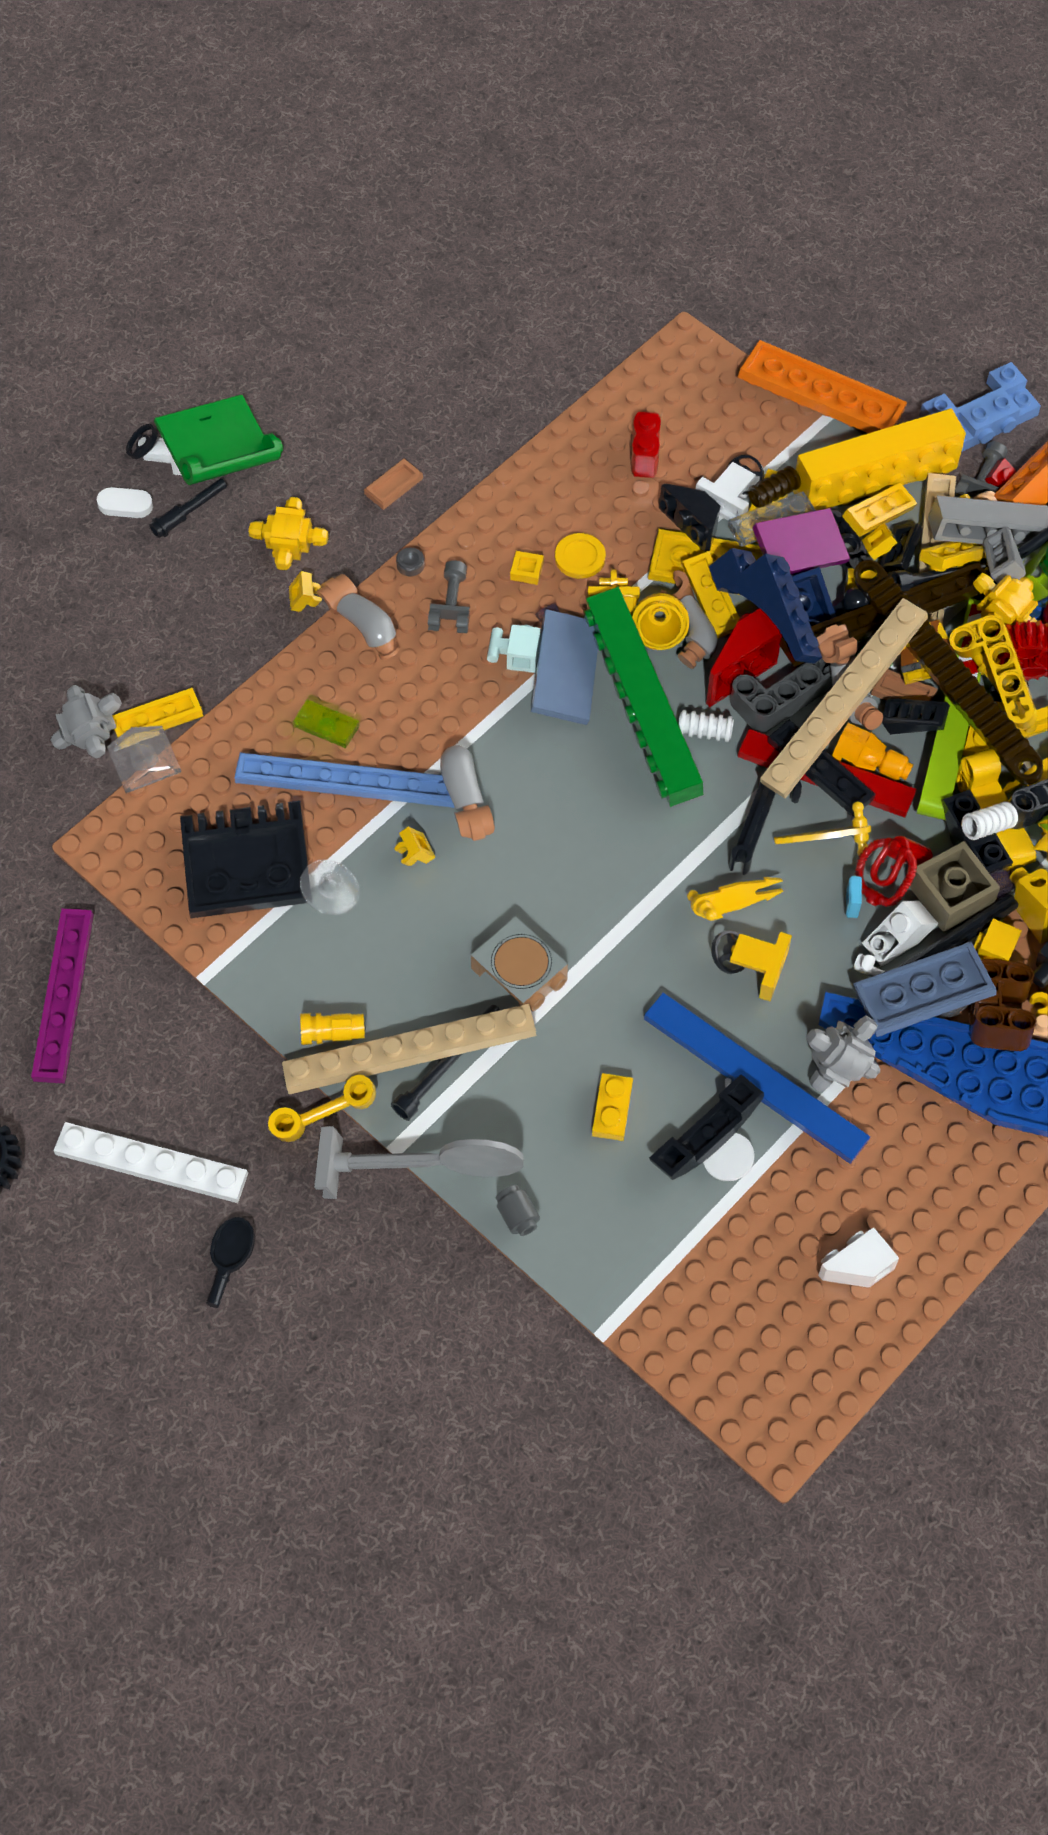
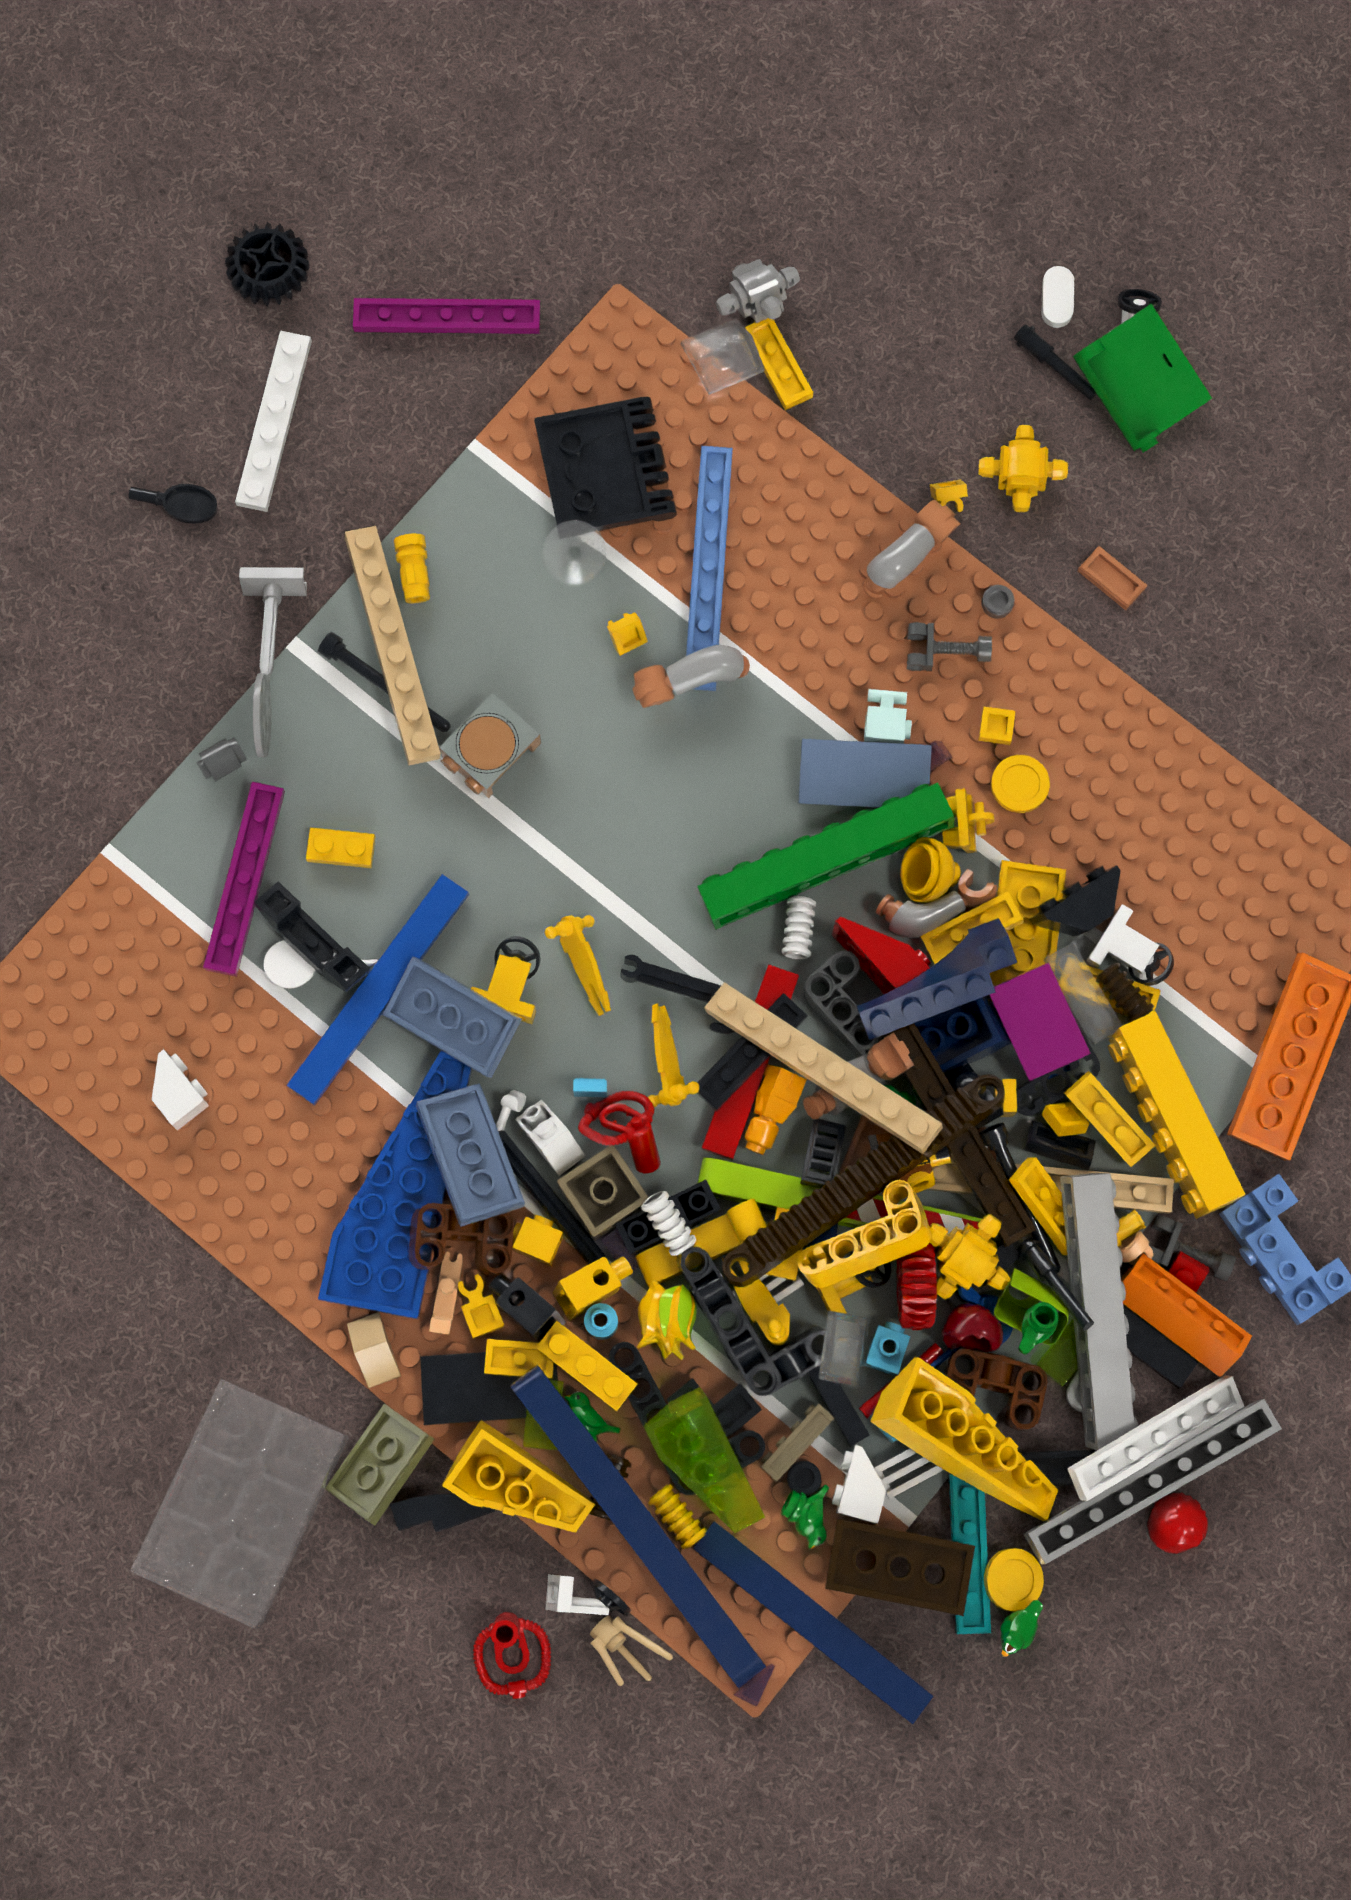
camera: 85 degrees right, 15 degrees up
(326, 723) = (774, 530): clear neon green plate -> none
(357, 1091) = (342, 598): yellow piece -> none
(642, 1193) = (244, 879): none -> magenta plate
(645, 444) = (1188, 849): red brick -> none
(790, 1003) = (452, 1017): none -> sand blue tile
(843, 1053) = (394, 1070): light grey piece -> none
(1005, 558) = (1024, 1254): light grey slope -> none

